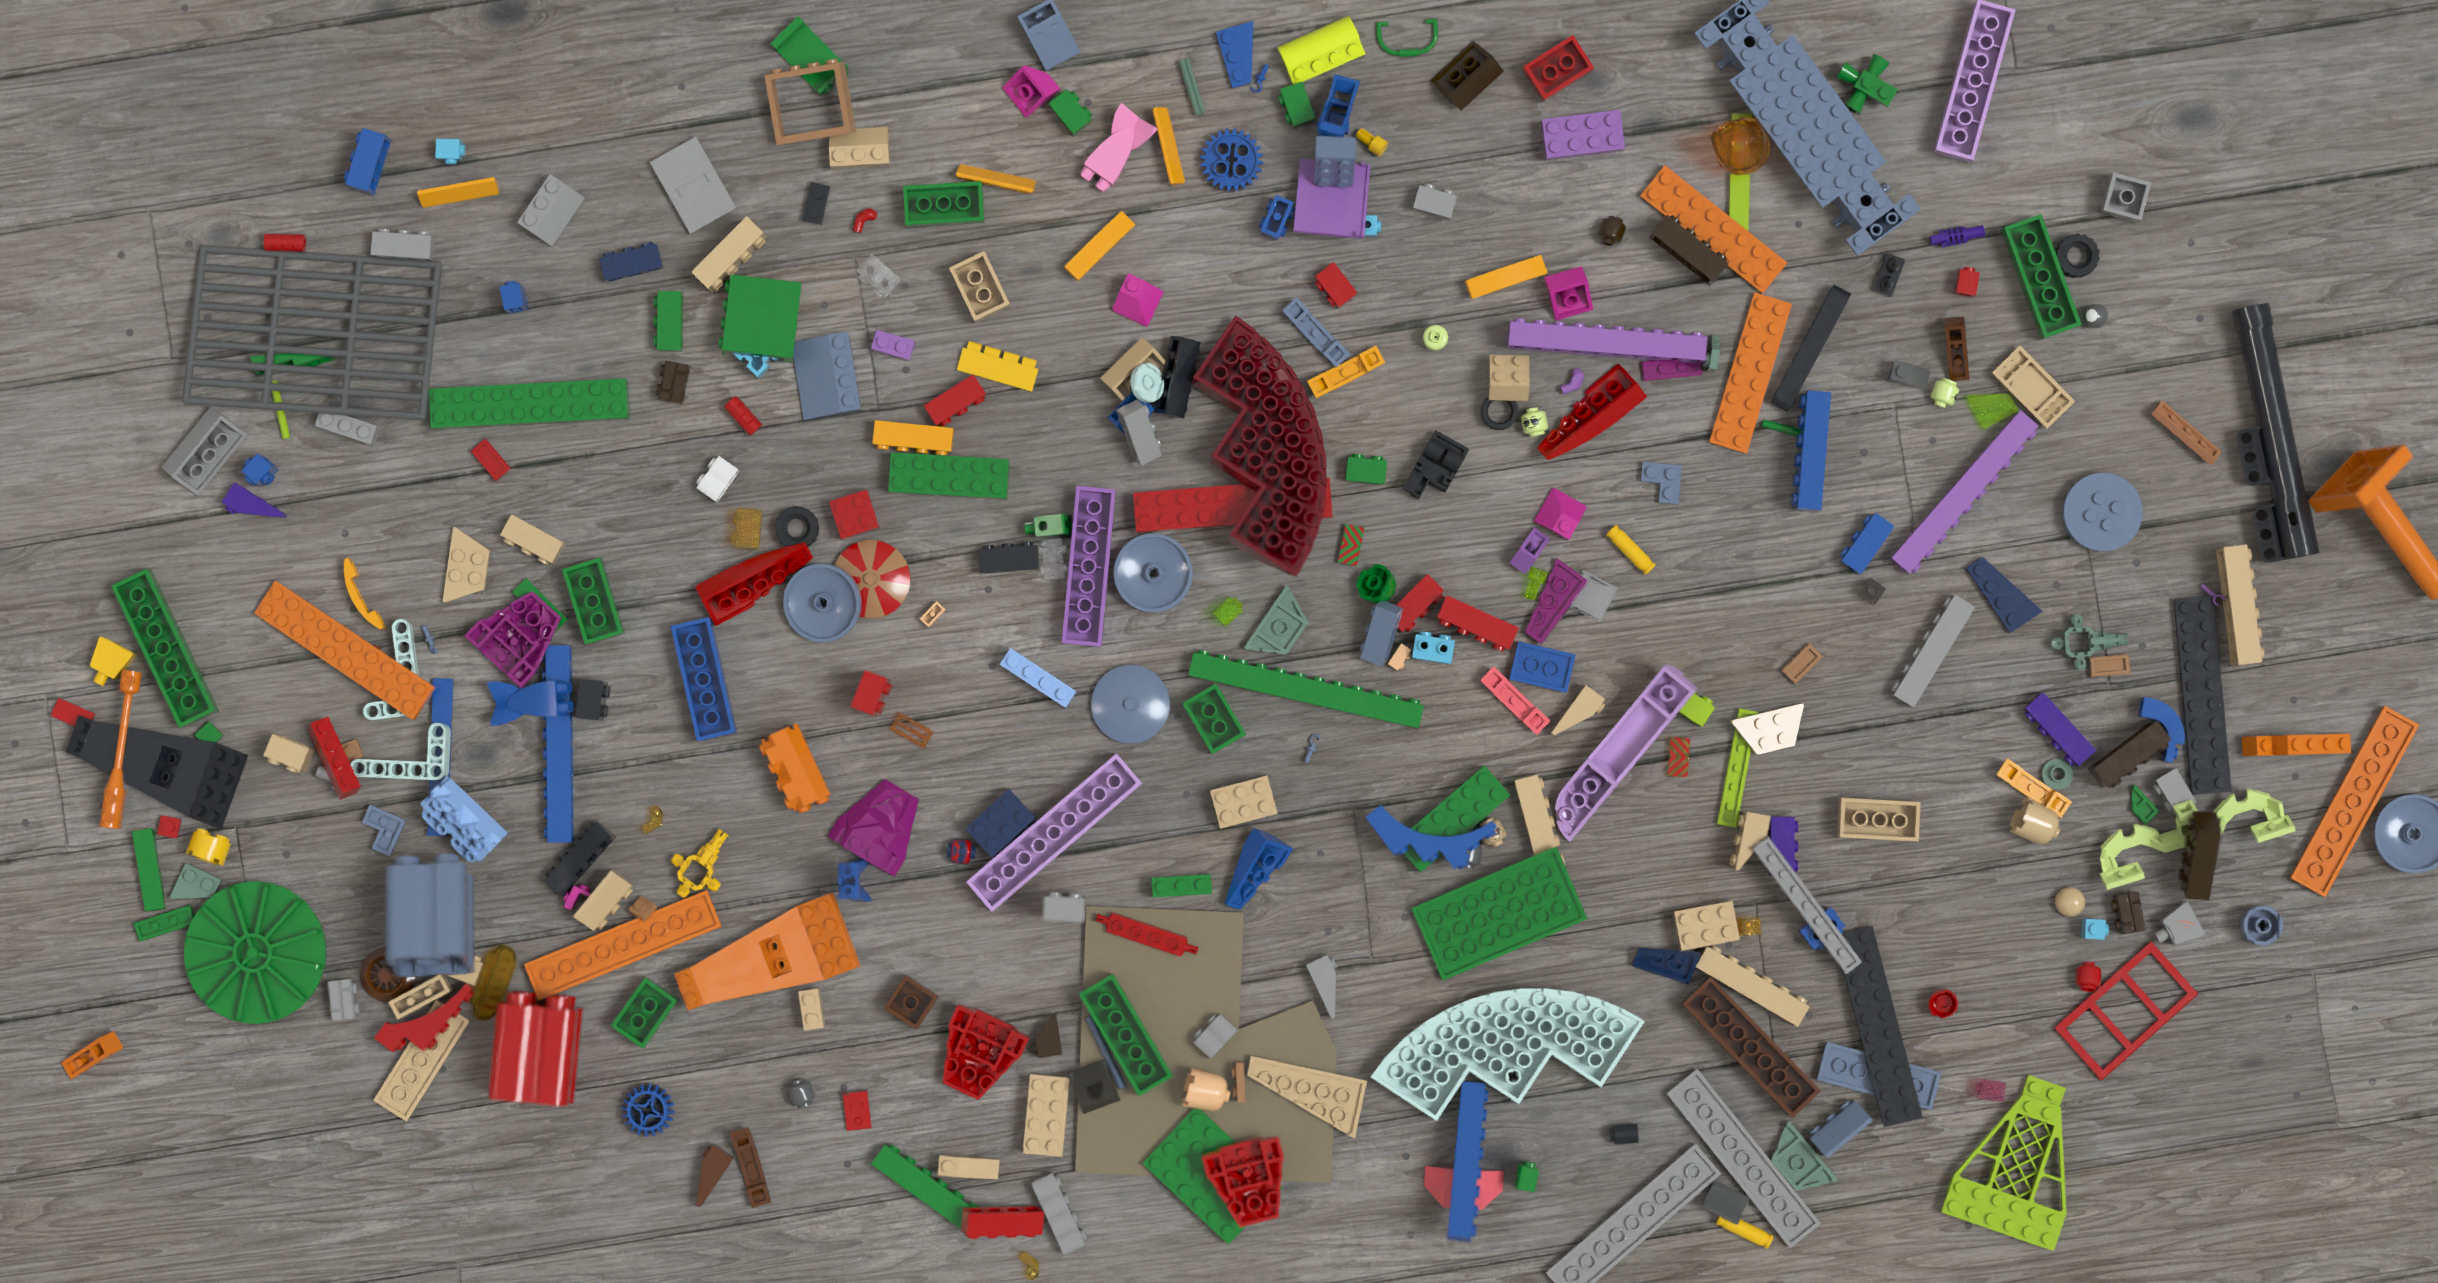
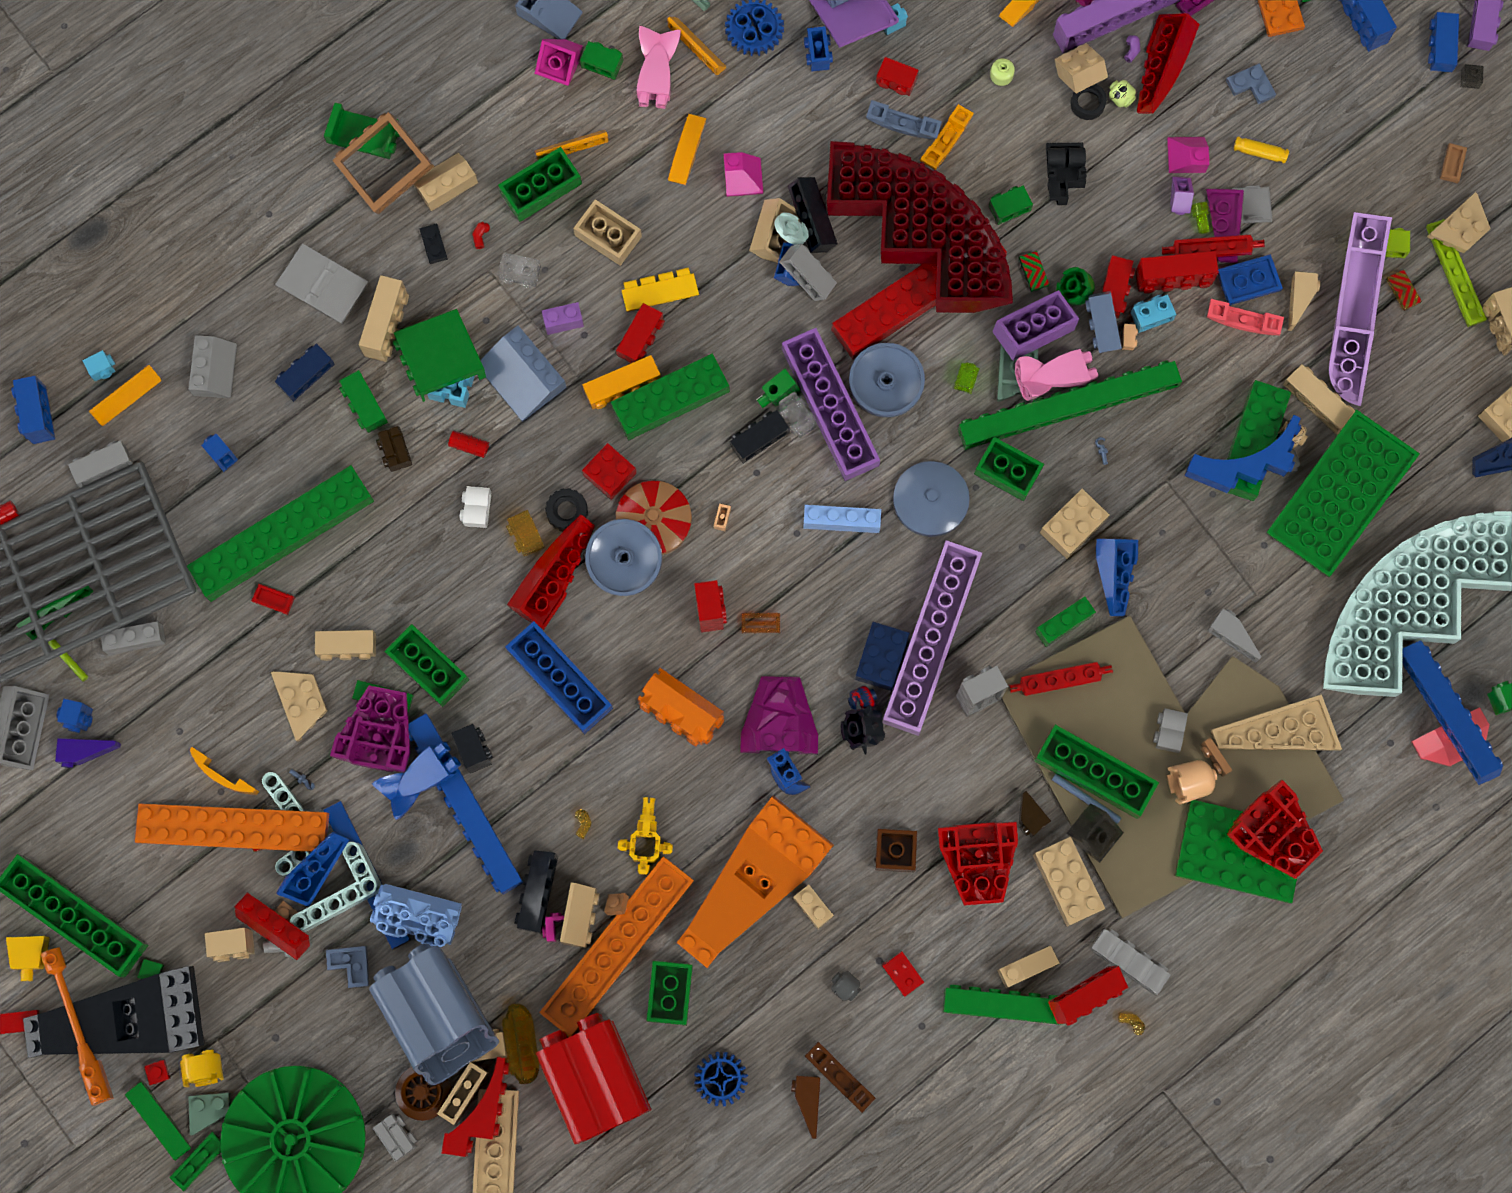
camera: 30 degrees left, 10 degrees down
(390, 733) = (310, 874): none -> blue wedge
(944, 878) = (862, 727): none -> black brick
(1316, 600) = (1035, 325): none -> medium lavender brick
(1322, 658) = (1063, 371): none -> bright pink hips
(1525, 618) = (1224, 246): none -> red plate

